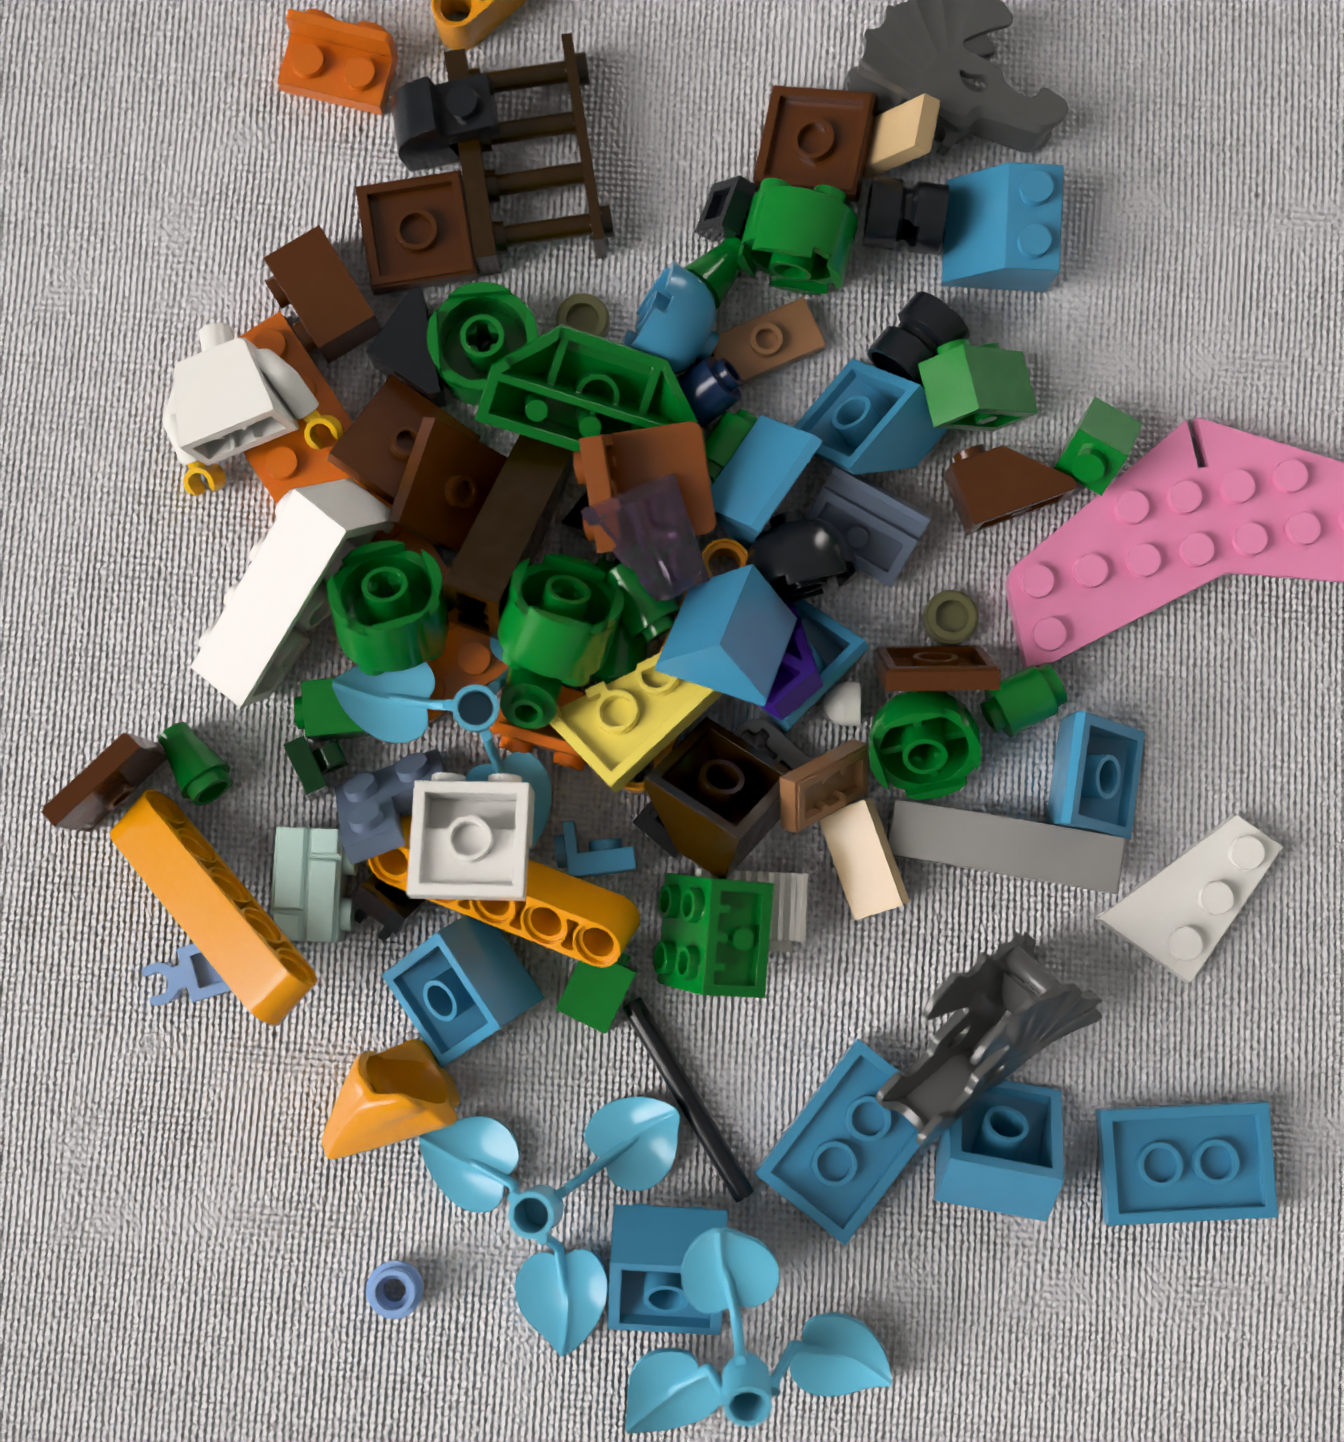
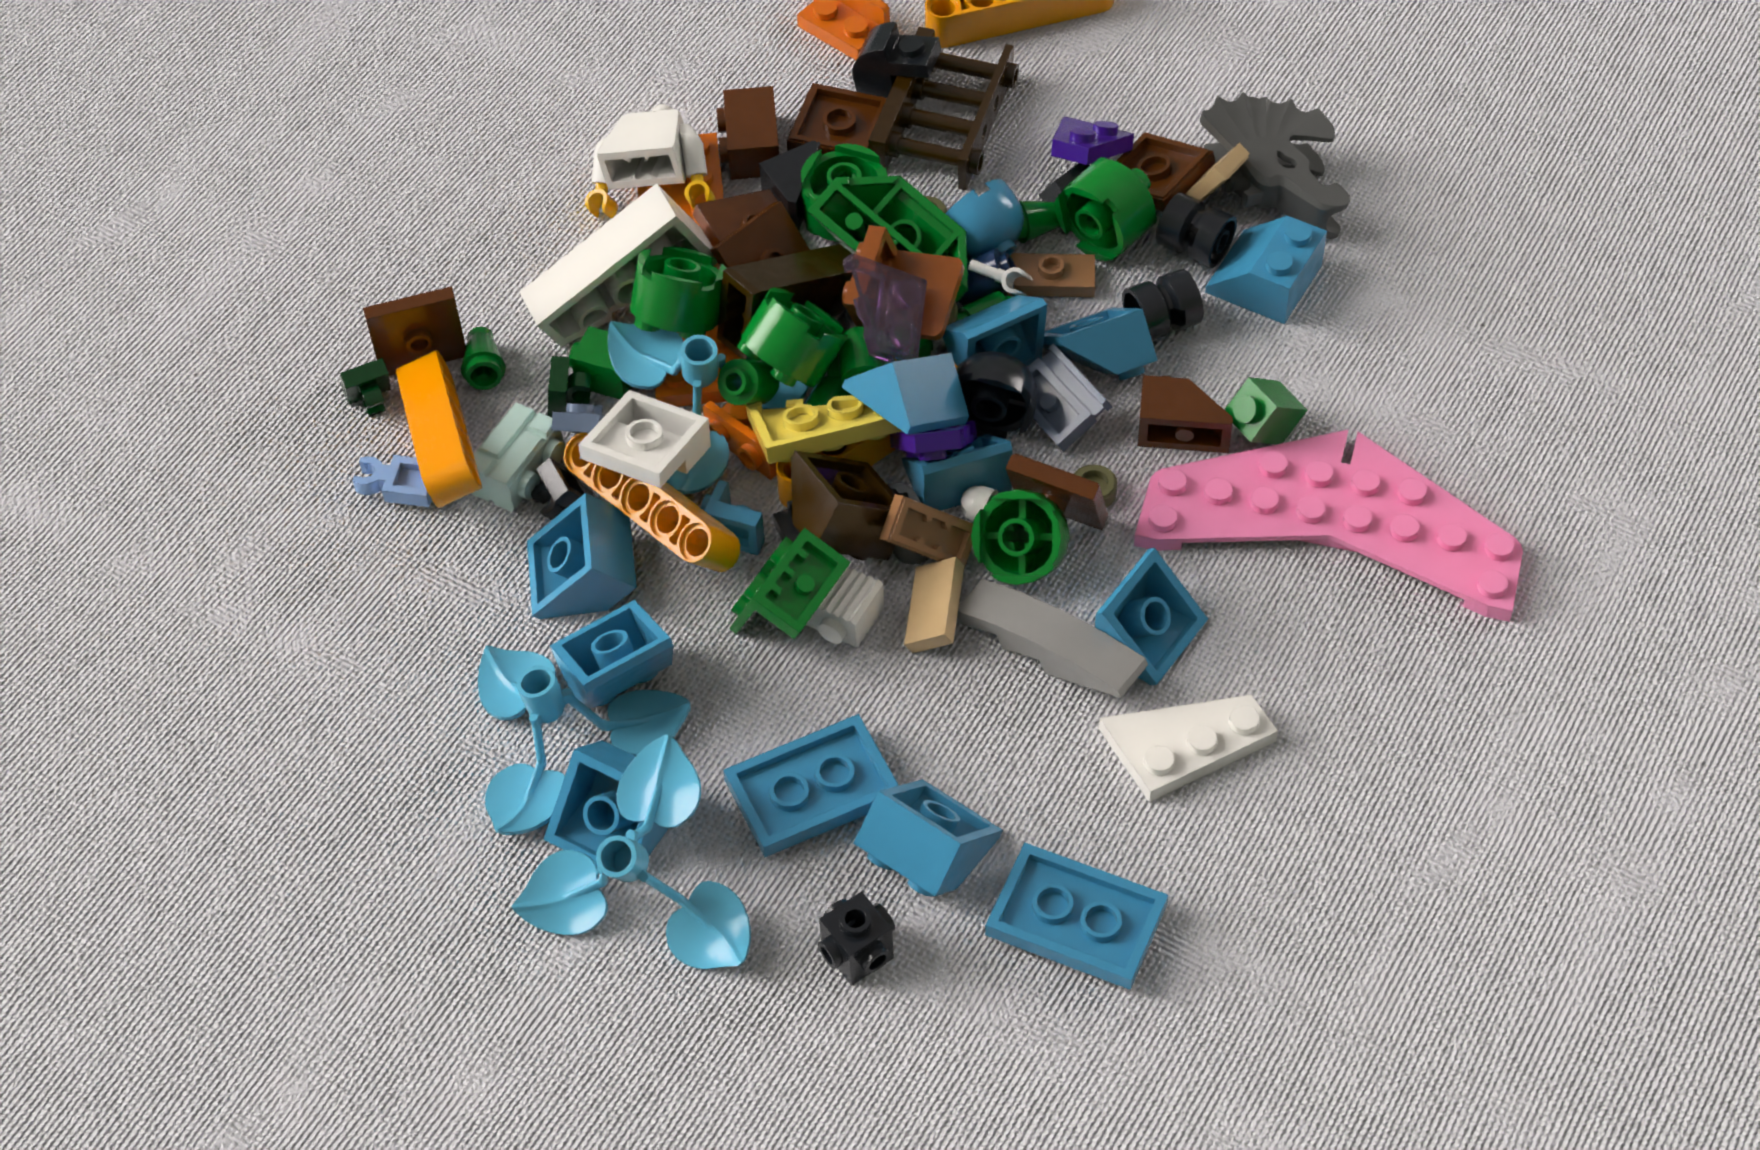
camera: 30 degrees right, 30 degrees down
(88, 866) = (367, 384): none -> dark green tile
(387, 1305) = (396, 728): light blue plate -> none
(390, 1100) = (476, 609): light orange hat -> none
(577, 1111) = (613, 654): none -> dark azure slope
(597, 992) = (681, 601): green brick -> none
(688, 1099) = (703, 710): black bar -> none
(724, 141) = (1088, 141): none -> dark purple wing
(735, 400) = (1004, 277): none -> white hand
(976, 1050) = (988, 731): dark grey animal -> none
(977, 387) = (1189, 337): green brick -> none
(977, 1290) = (856, 937): none -> black brick
(1024, 700) = (1115, 549): green brick -> none

